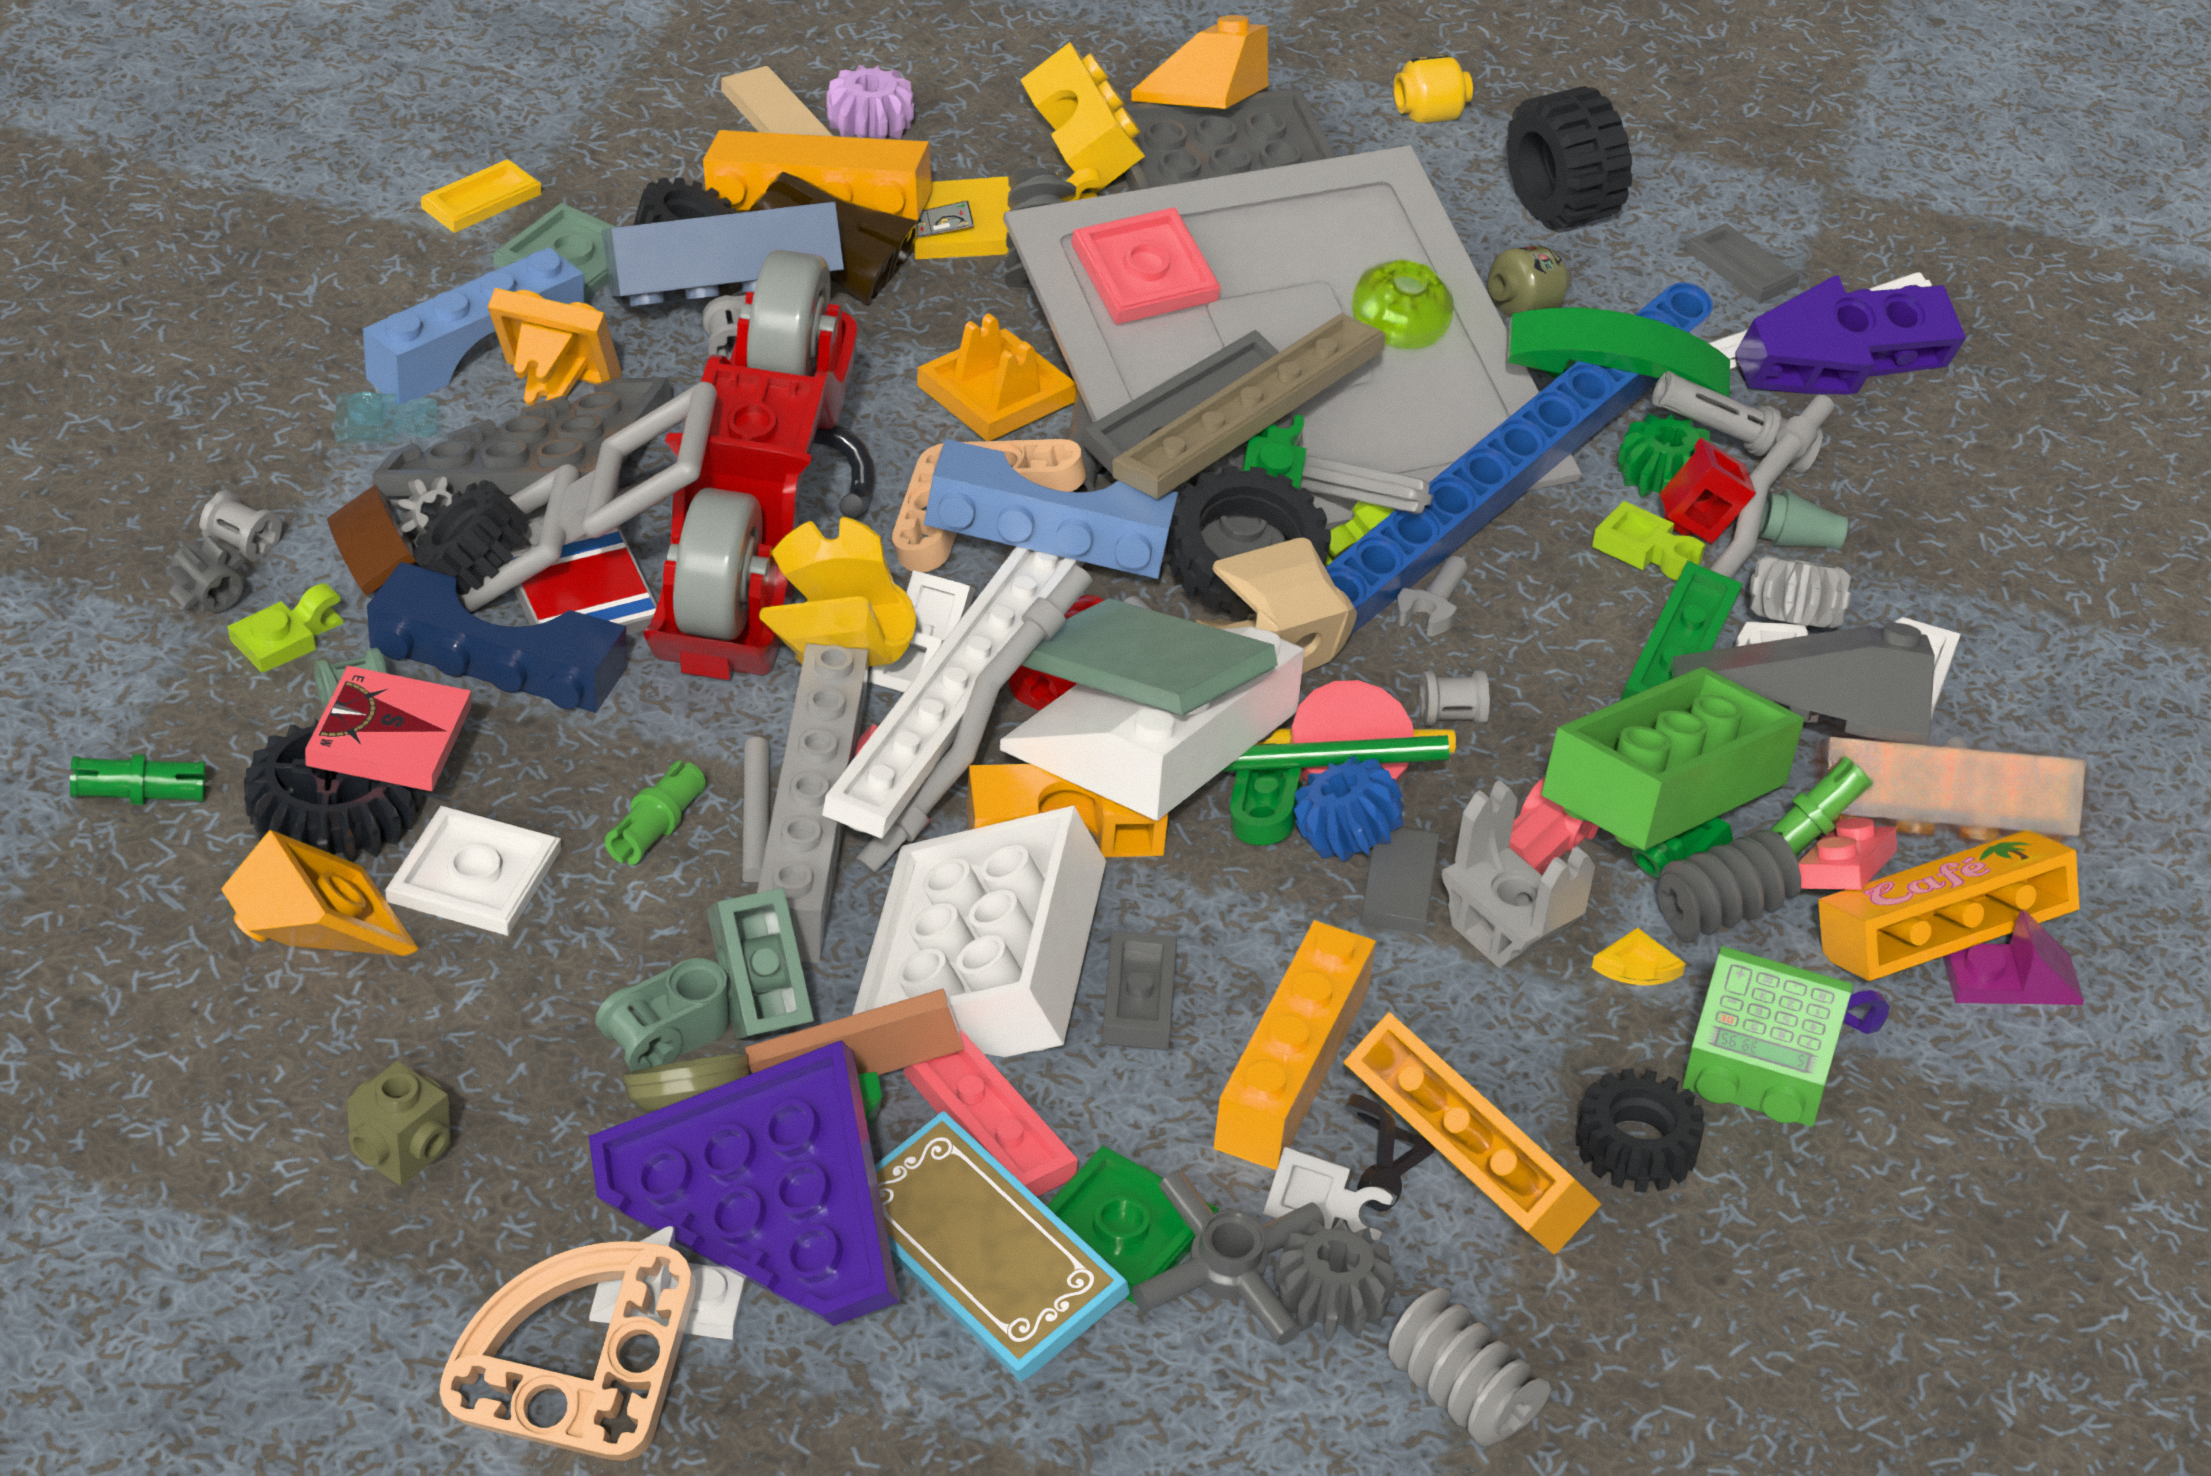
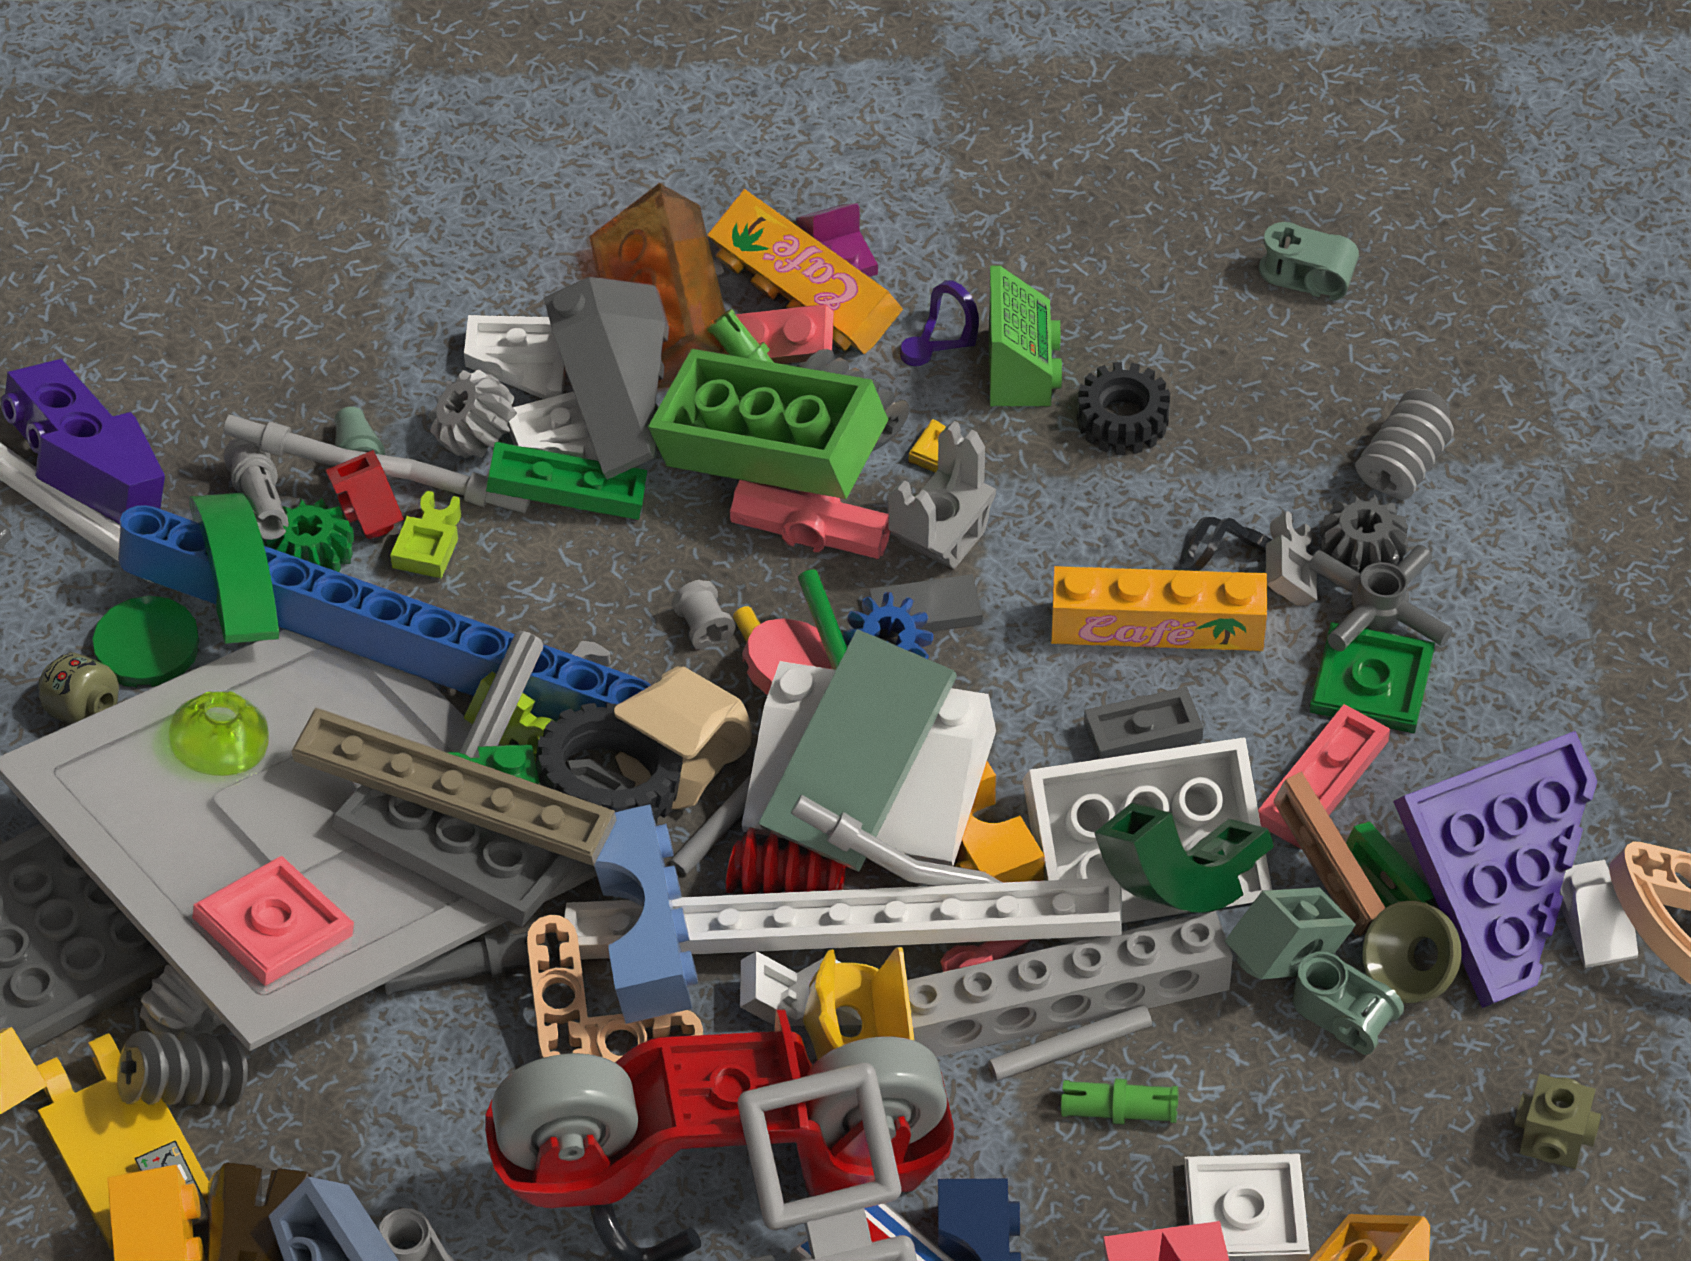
camera: 105 degrees left, 10 degrees up
(863, 862) = (1150, 862): none -> dark green arch
(990, 1248) = (1453, 723): pearl gold tile -> none
(995, 381) = (415, 1052): light orange plate -> none
(1472, 1133) = (1198, 484): light orange brick -> none
(1843, 1395) = (1312, 262): none -> sand green piece

